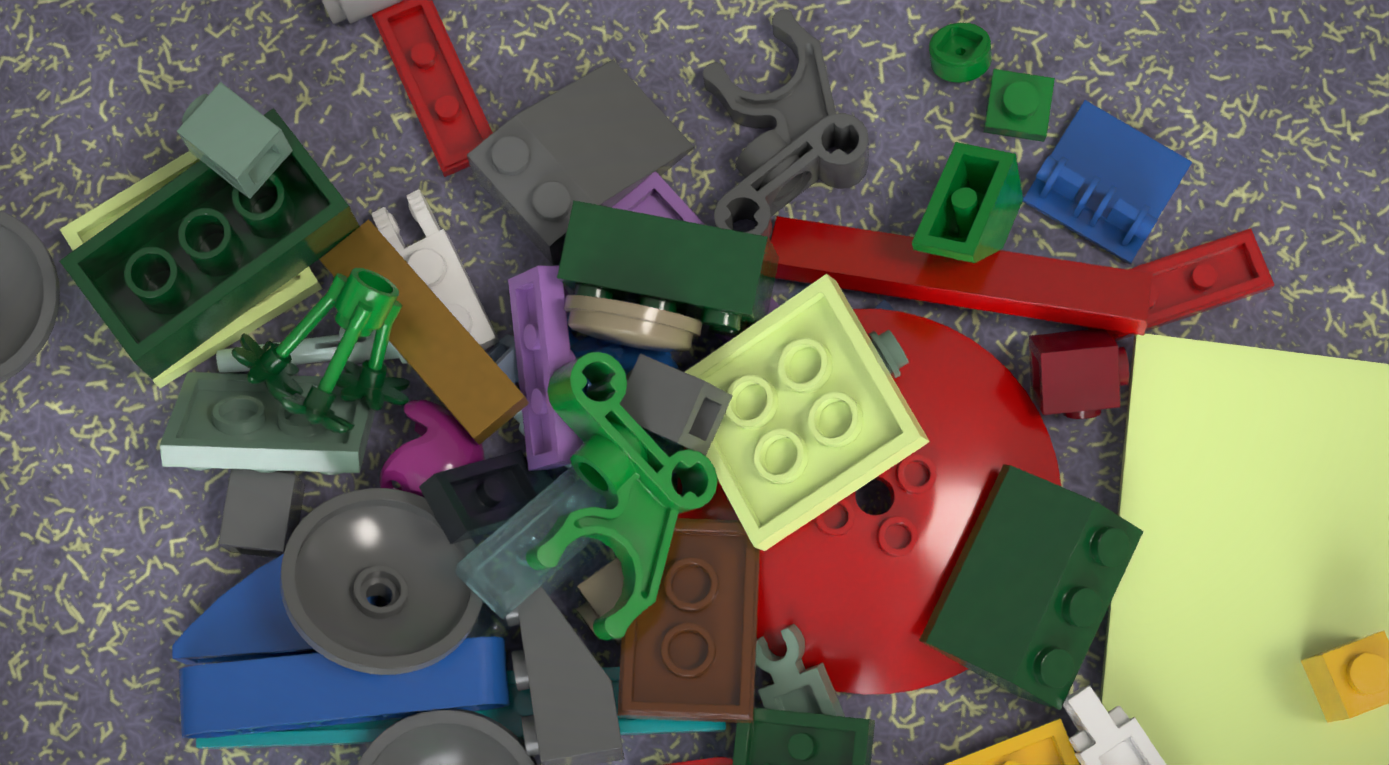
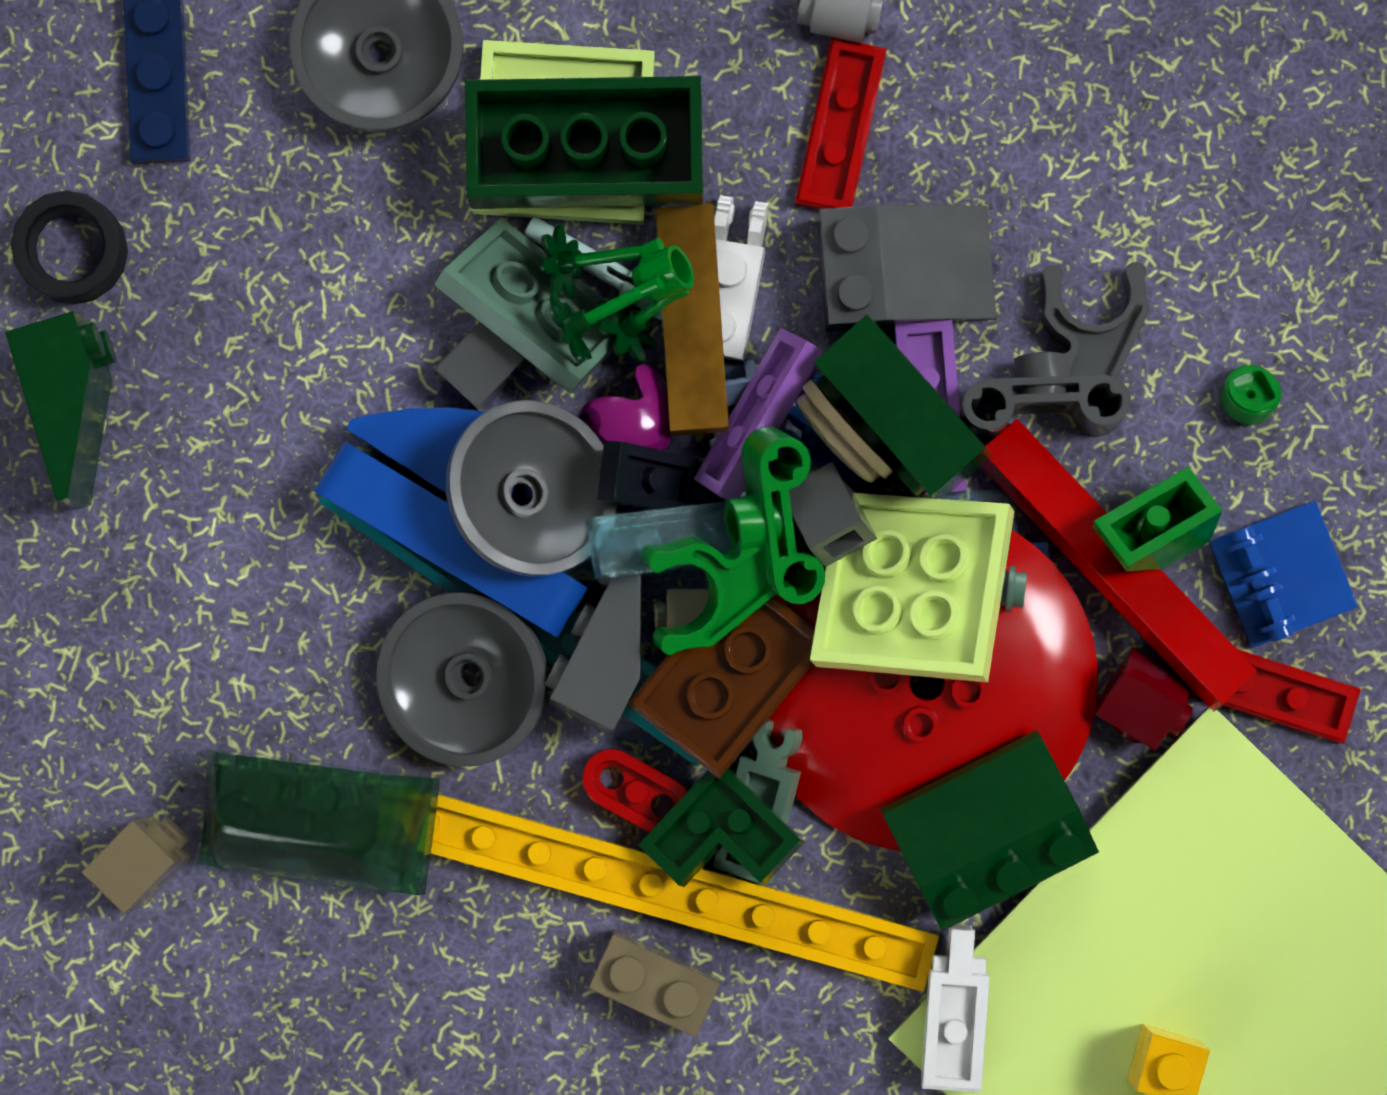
camera: 30 degrees right, 10 degrees up
(233, 139) = (653, 84): sand green brick -> none
(1019, 105) = (1263, 467): green plate -> none

